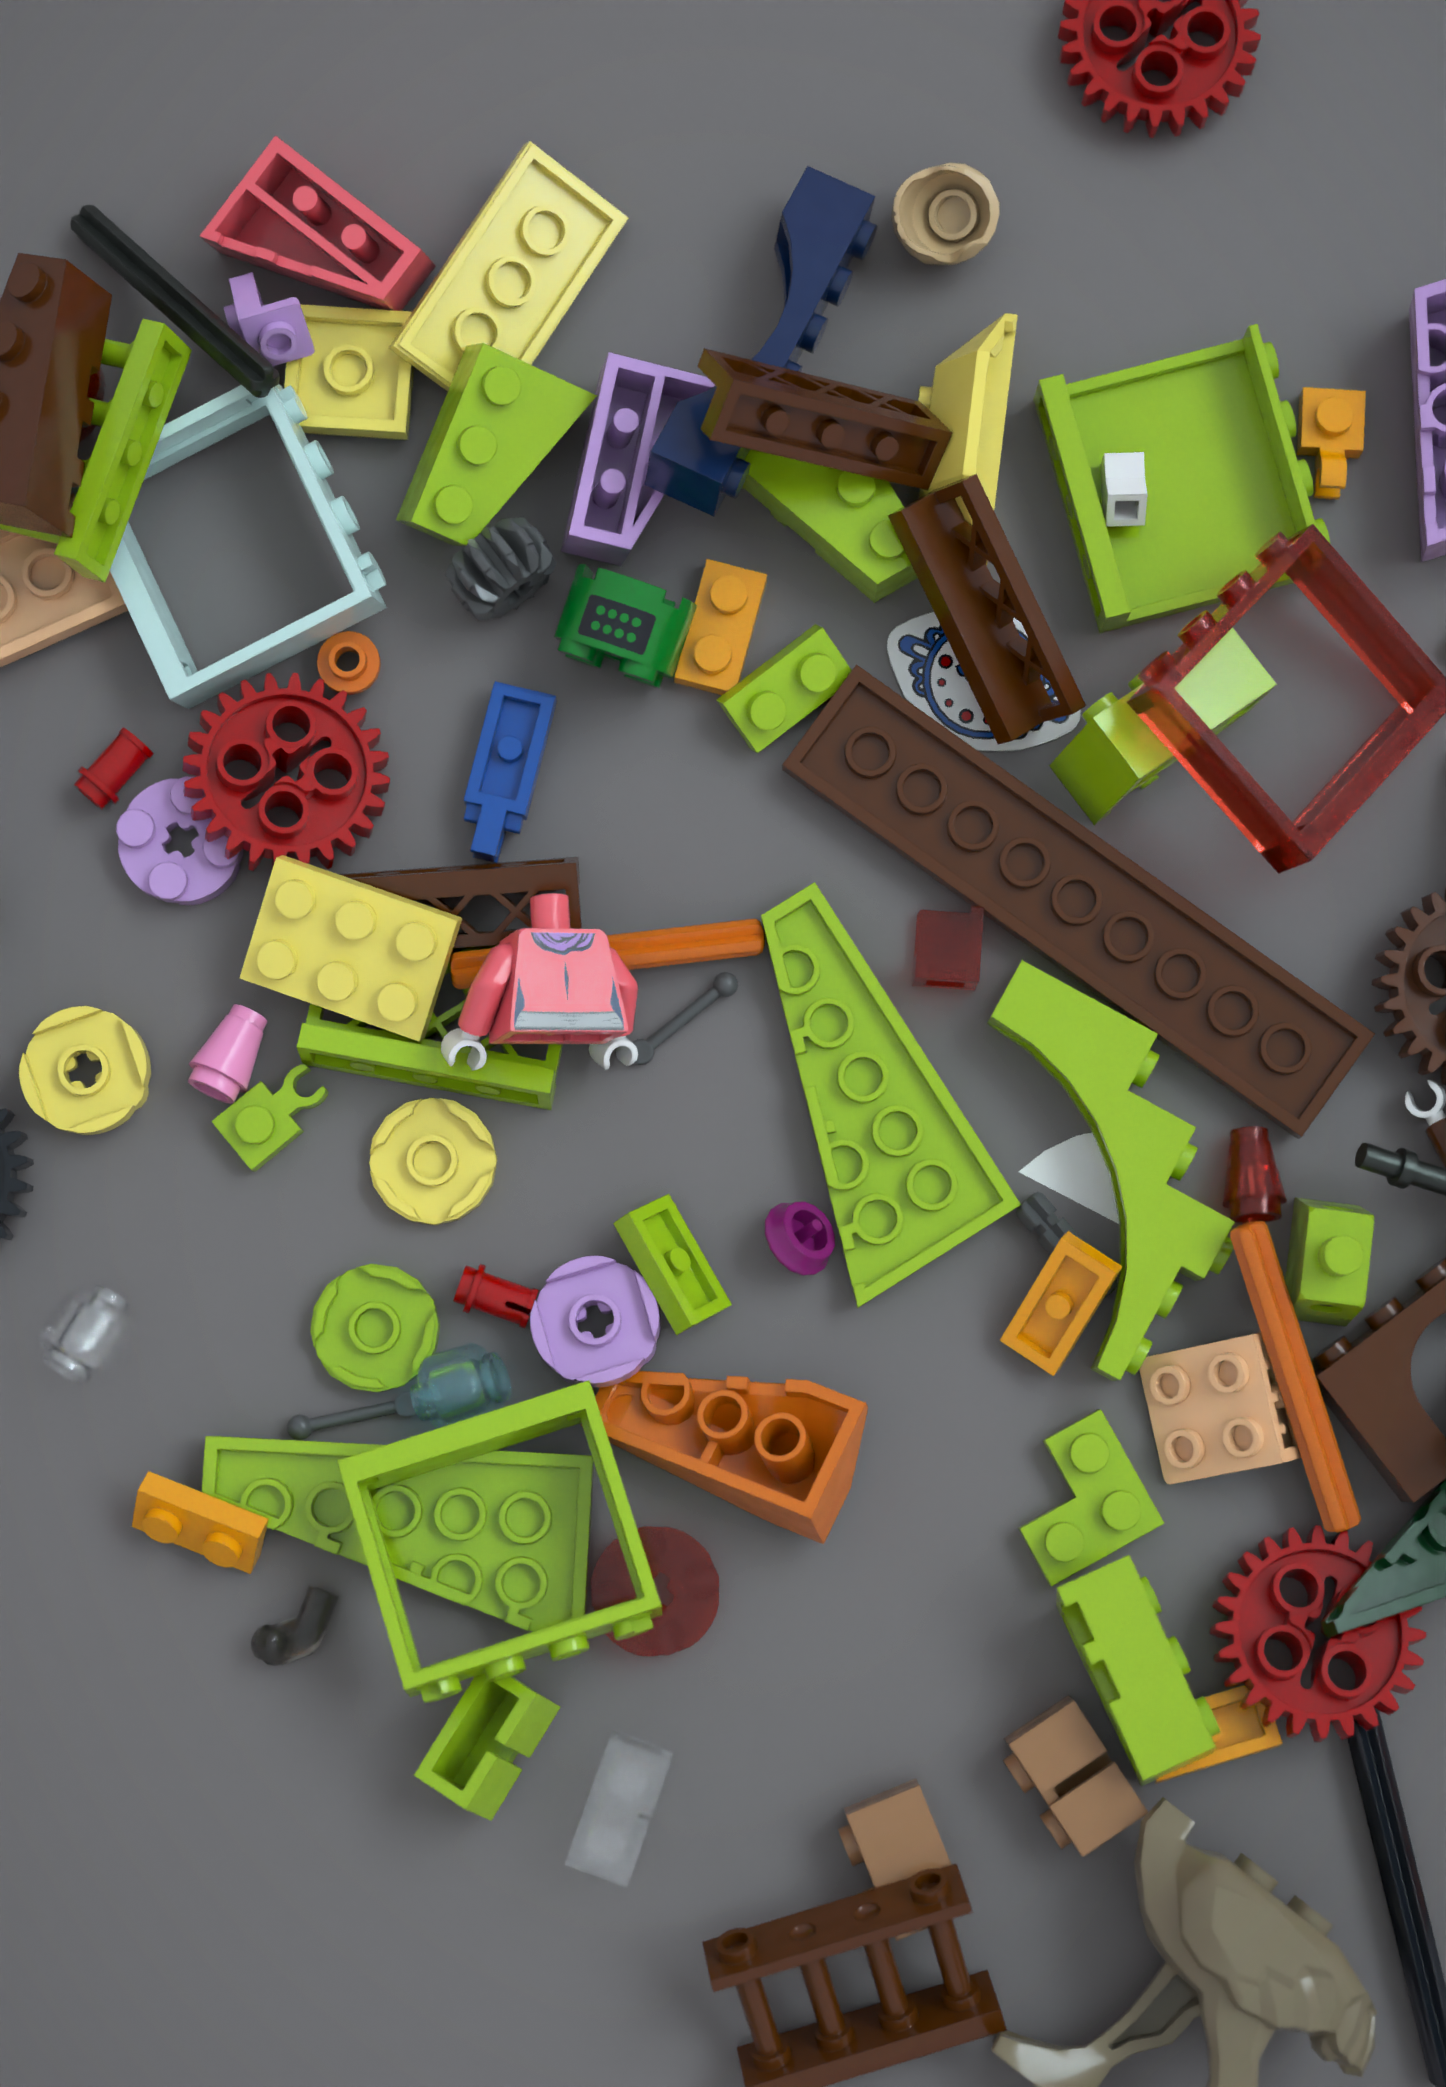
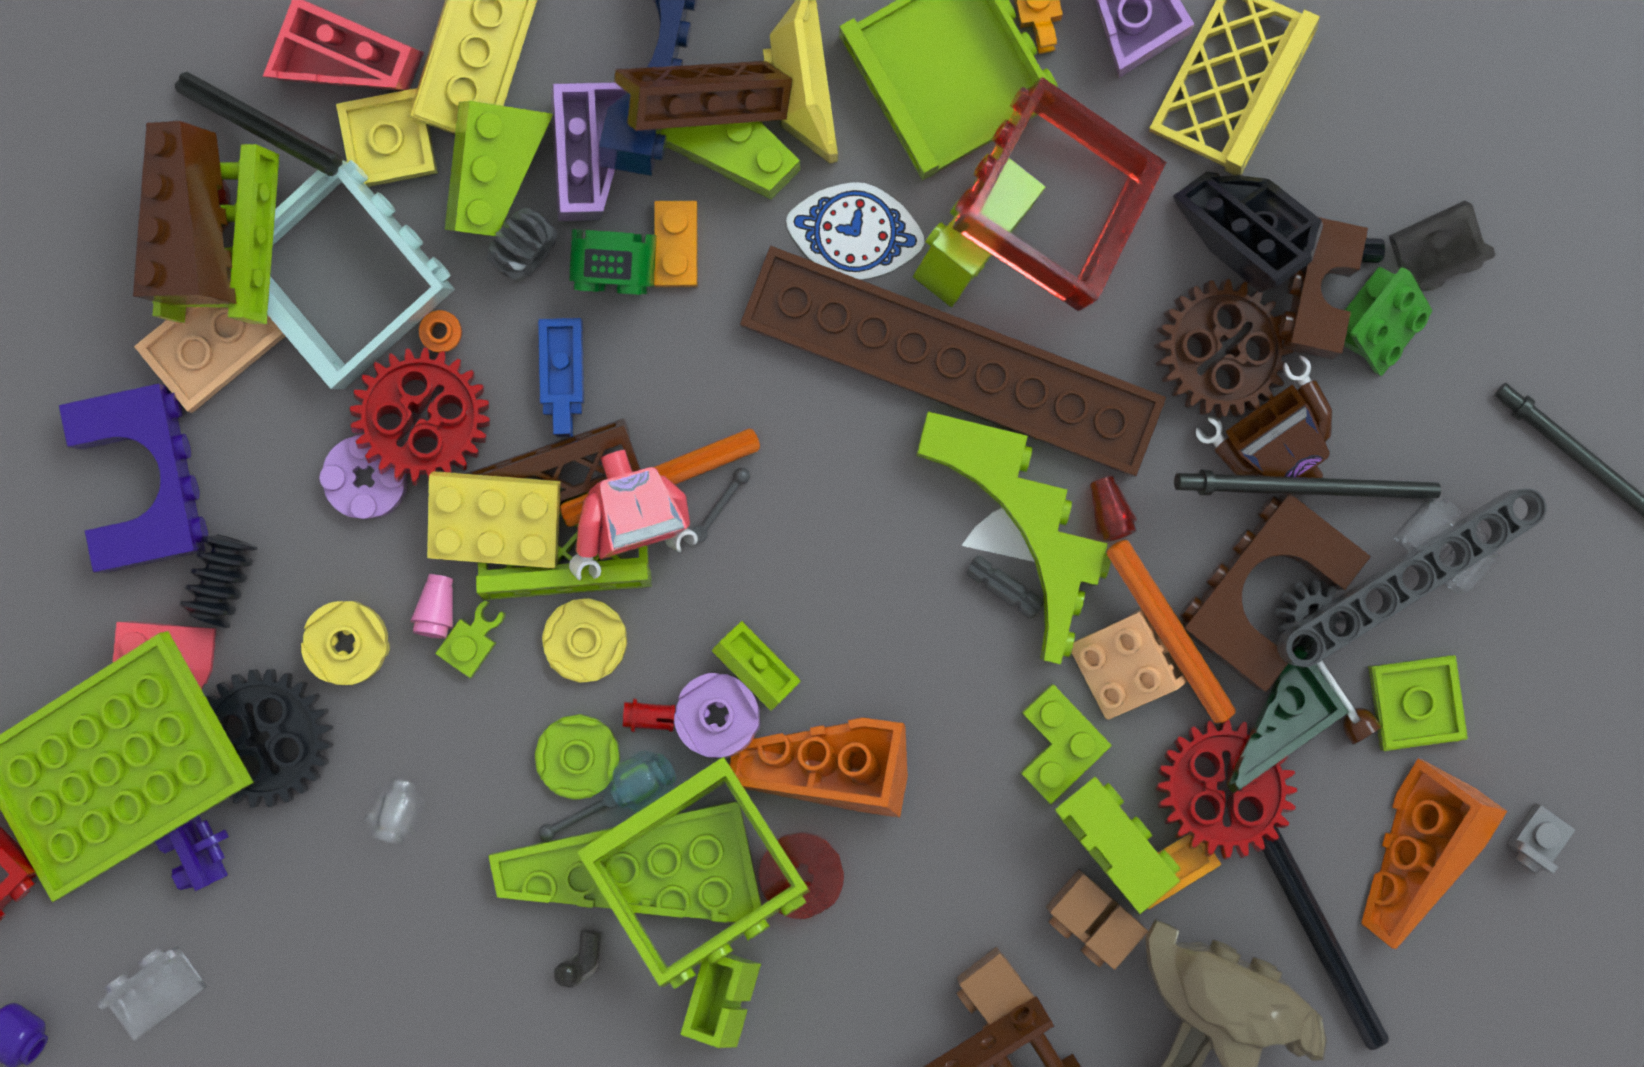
camera: 15 degrees left, 5 degrees up
(112, 769) = (306, 442): red pin -> none
(199, 1523) = (499, 911): light orange plate -> none
(273, 329) = (328, 127): lavender bracket -> none
(610, 1825) = (815, 1017): clear piece -> none
(785, 688) = (728, 272): lime plate -> none
(800, 1237) = (832, 626): magenta hat -> none
(888, 1133) = (871, 543): lime wing -> none
(948, 949) = (878, 414): clear red panel -> none
(980, 611) = (841, 191): reddish brown fence -> none
(1060, 1303) = (1010, 624): light orange plate -> none
(1123, 489) = (913, 83): white piece -> none
(1328, 1260) = (1173, 550): lime torso -> none

